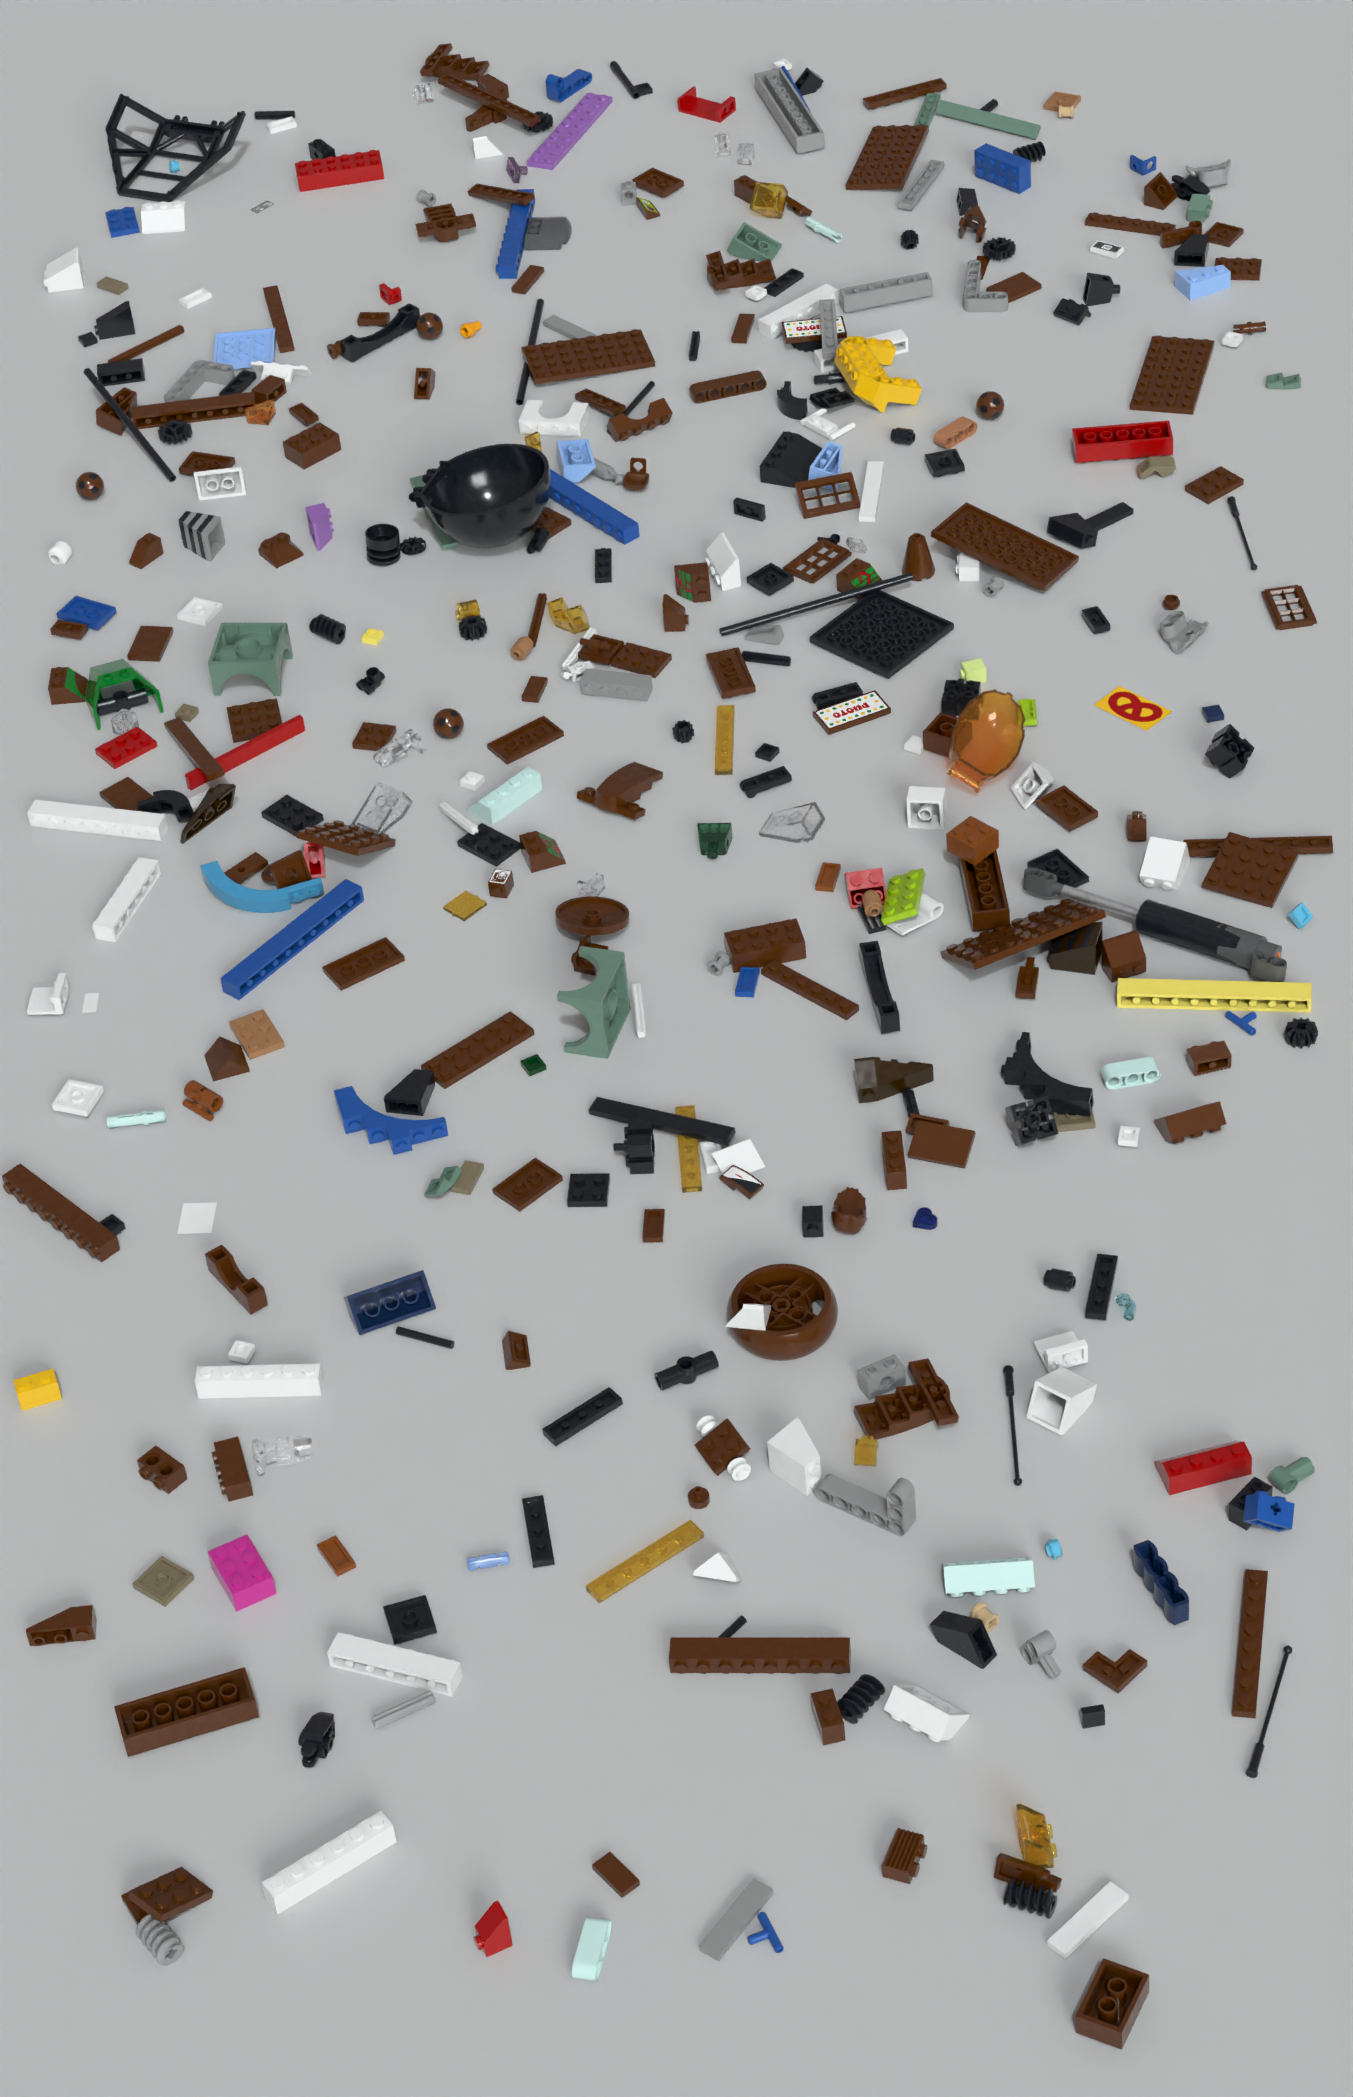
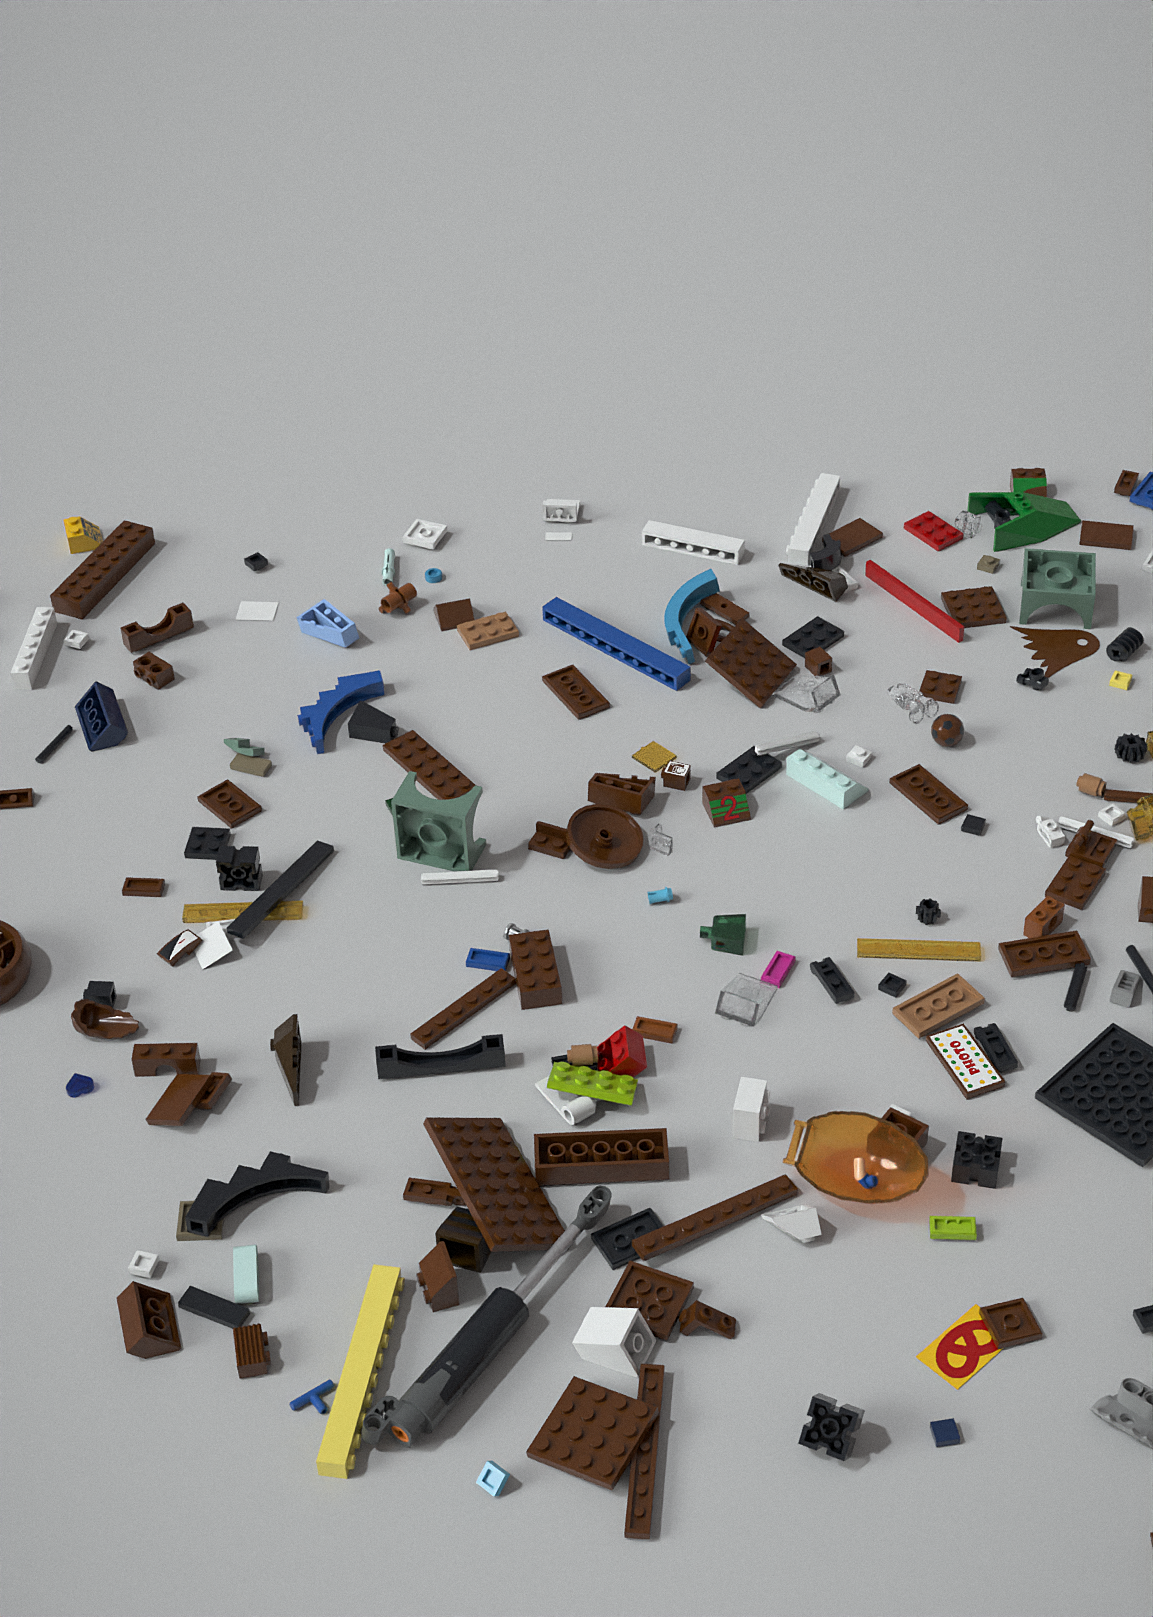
camera: 90 degrees right, 0 degrees up
(60, 1213) = (280, 532): reddish brown brick -> none
(112, 1350) = (102, 569): none -> reddish brown brick
(152, 1086) = (433, 575): none -> dark azure tile
(194, 749) = (913, 563): reddish brown tile -> none
(245, 1142) = (328, 624): none -> light blue wedge
(308, 1274) = (153, 670): none -> reddish brown brick
(313, 675) = (1058, 647): none -> reddish brown piece
(336, 806) = (818, 662): none -> reddish brown brick
(529, 910) = (623, 793): none -> reddish brown wedge
(534, 689) = (1020, 799): reddish brown tile -> none
(555, 641) = (1112, 815): none -> white tile
(568, 714) = (973, 824): none -> black tile
(616, 684) = (1019, 858): light grey brick -> none
(621, 789) = (826, 862): reddish brown slope -> none
(663, 881) = (660, 895): none -> medium azure pin
(693, 670) = (1044, 918): none -> dark orange brick
(751, 813) = (778, 968): none -> dark pink tile
(793, 724) = (938, 1005): none -> medium nougat plate
(910, 1101) = (256, 1081): black axle -> none
(972, 840) = (653, 1132): dark orange brick -> none
(973, 670) = (1038, 1177): yellowish green brick -> none
(984, 750) = (866, 1180): none -> arm
(1031, 1120) = (177, 1168): black brick -> none
(1034, 826) = (714, 1217): none -> reddish brown plate
(1066, 808) = (749, 1253): reddish brown plate -> none
(1111, 686) = (1010, 1323): none -> reddish brown tile
(1118, 855) = (655, 1294): none -> reddish brown plate
(1165, 1090) = (213, 1307): none -> black tile
(1301, 1032) = (269, 1451): black gear -> none

